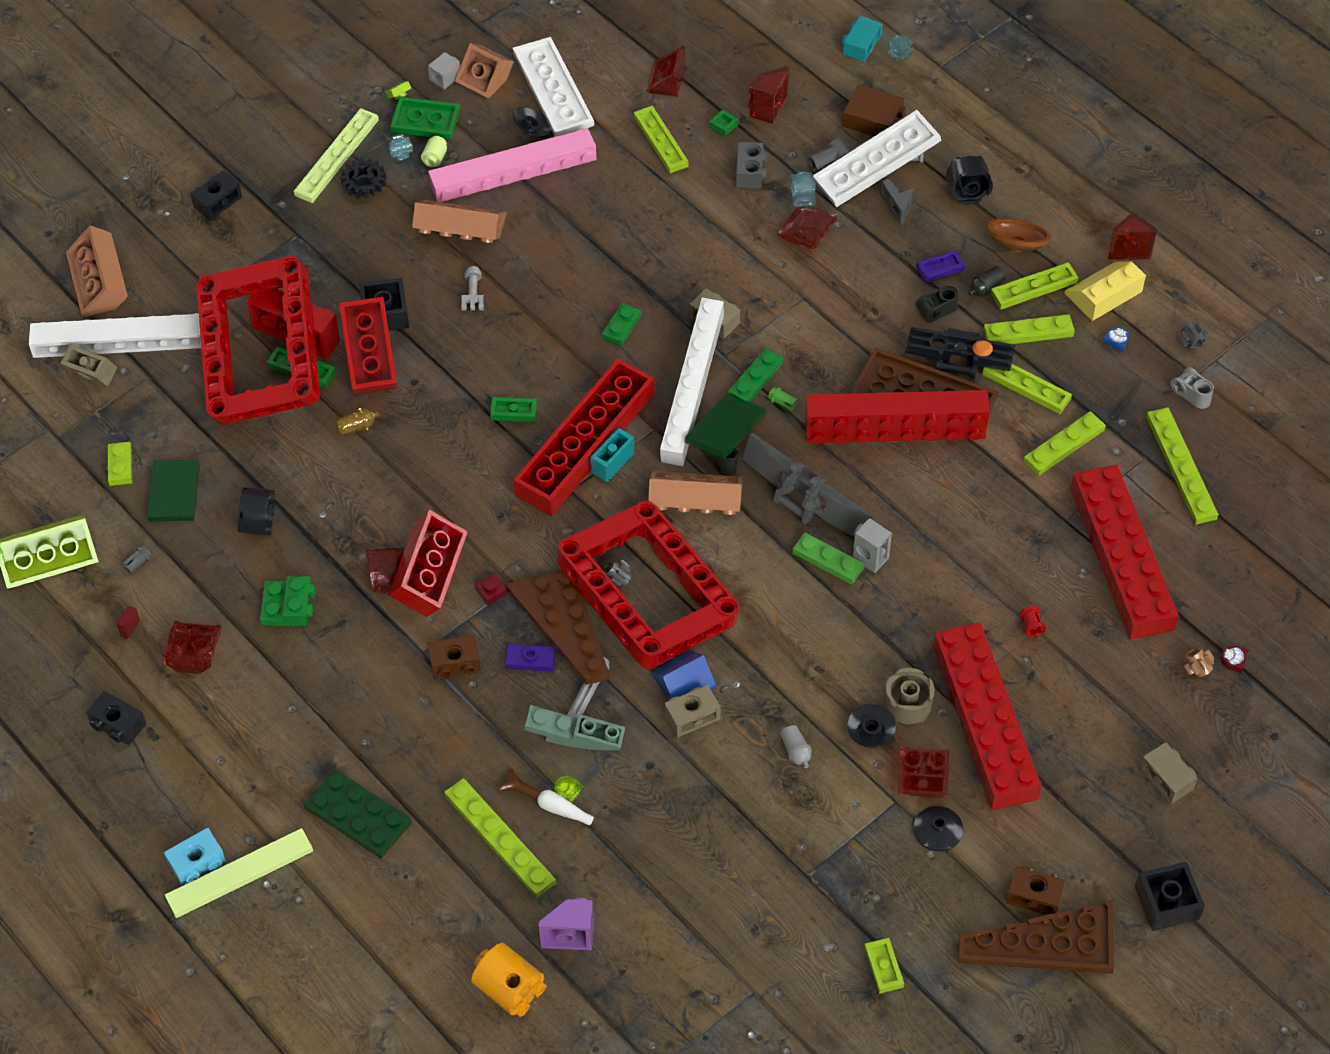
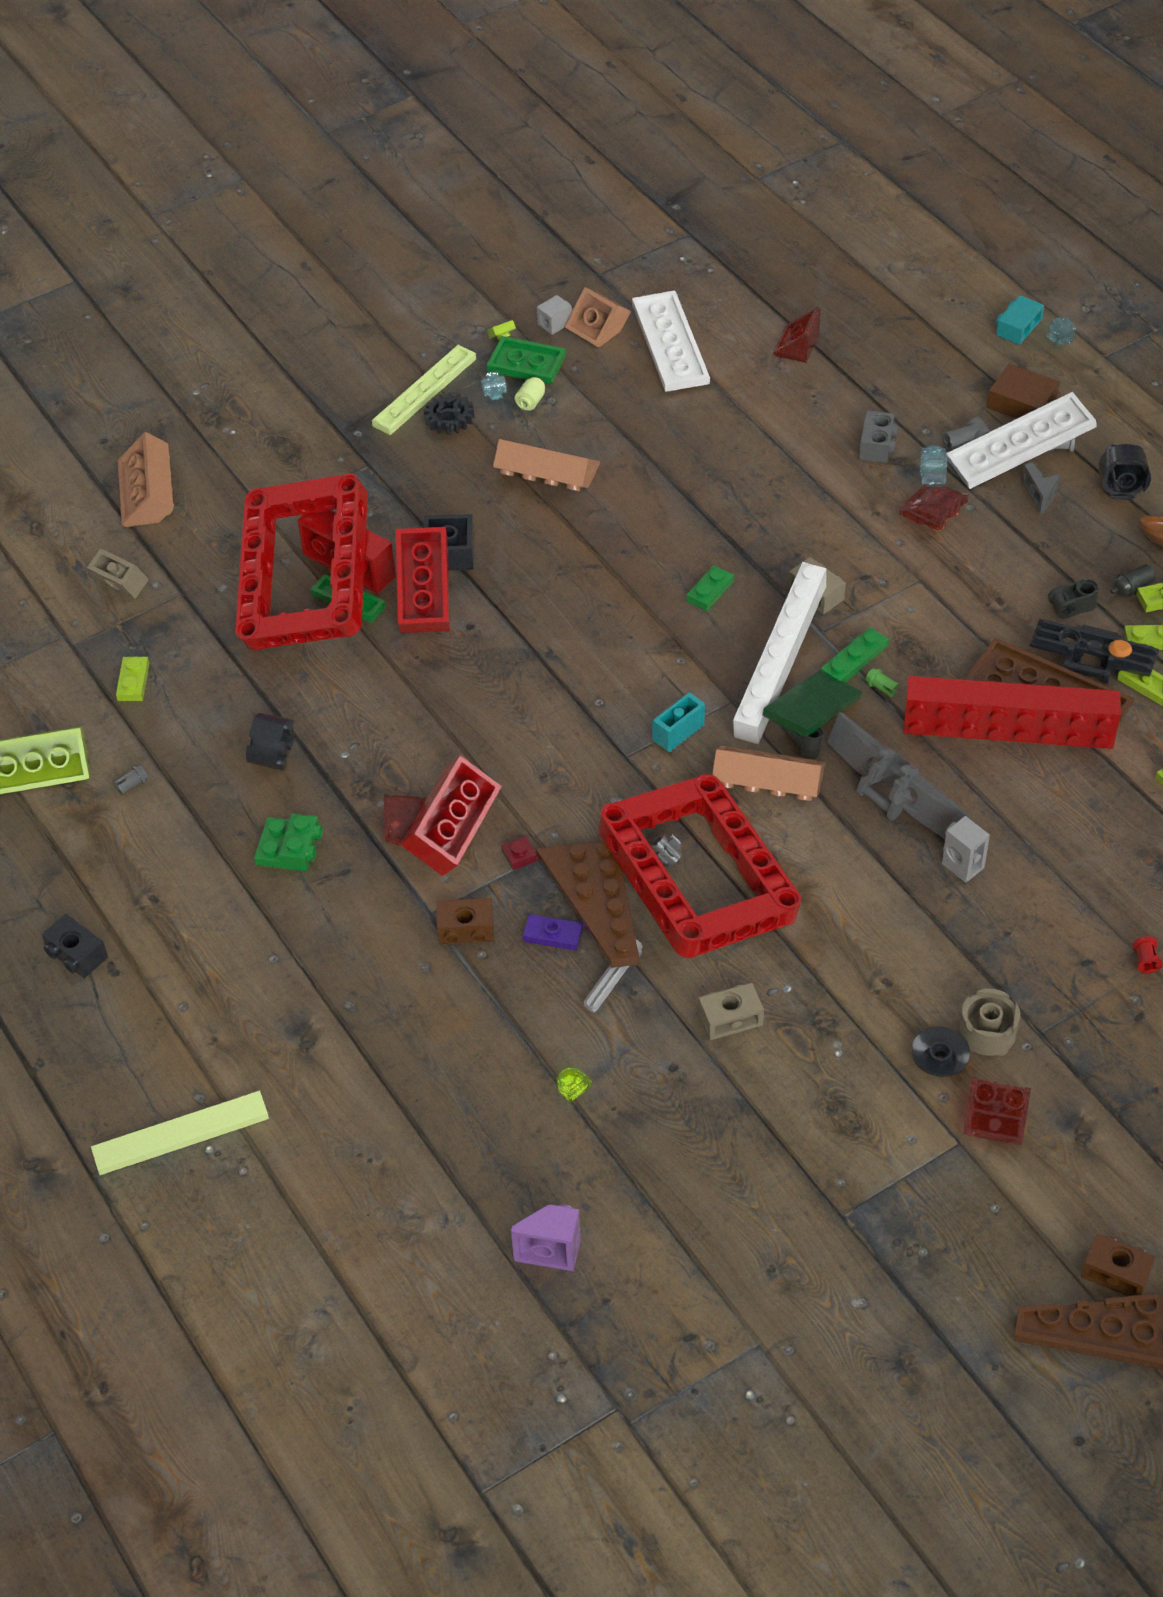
camera: 10 degrees right, 5 degrees down
(116, 335) = (153, 546): white brick -> none
(128, 621) = (108, 844): dark red tile -> none
(173, 490) = (185, 712): dark green tile -> none
(191, 647) = (172, 878): clear red slope -> none
(202, 845) = (140, 1096): medium azure brick -> none
(216, 195) = (287, 416): black brick -> none
(356, 421) = (397, 660): clear yellow piece -> none
(357, 813) = (327, 1082): dark green plate -> none
(473, 275) = (551, 521): light grey hinge -> none
(500, 838) = (486, 1129): lime plate -> none
(507, 979) = (467, 1290): light orange cylinder -> none
(512, 165) = (614, 414): bright pink brick -> none
(513, 409) = (575, 664): green plate -> none
(531, 122) = (640, 373): black dish -> none
(547, 799) = (546, 1091): white piece -> none
(566, 455) = (625, 716): red brick -> none
(574, 732) = (589, 1019): sand green slope -> none
(661, 139) = (781, 403): lime plate -> none
(683, 674) = (726, 969): blue slope -> none
(723, 123) = (853, 392): green plate -> none
(768, 94) = (907, 365): clear red slope -> none
(797, 748) = (849, 1067): light grey piece -> none
(828, 558) = (913, 860): bright green plate -> none
(884, 965) = (922, 1332): lime plate -> none
(936, 837) = (1003, 1189): black dish -> none
(940, 266) = (1081, 560): dark purple plate -> none
(986, 716) = (1080, 1057): red brick -> none

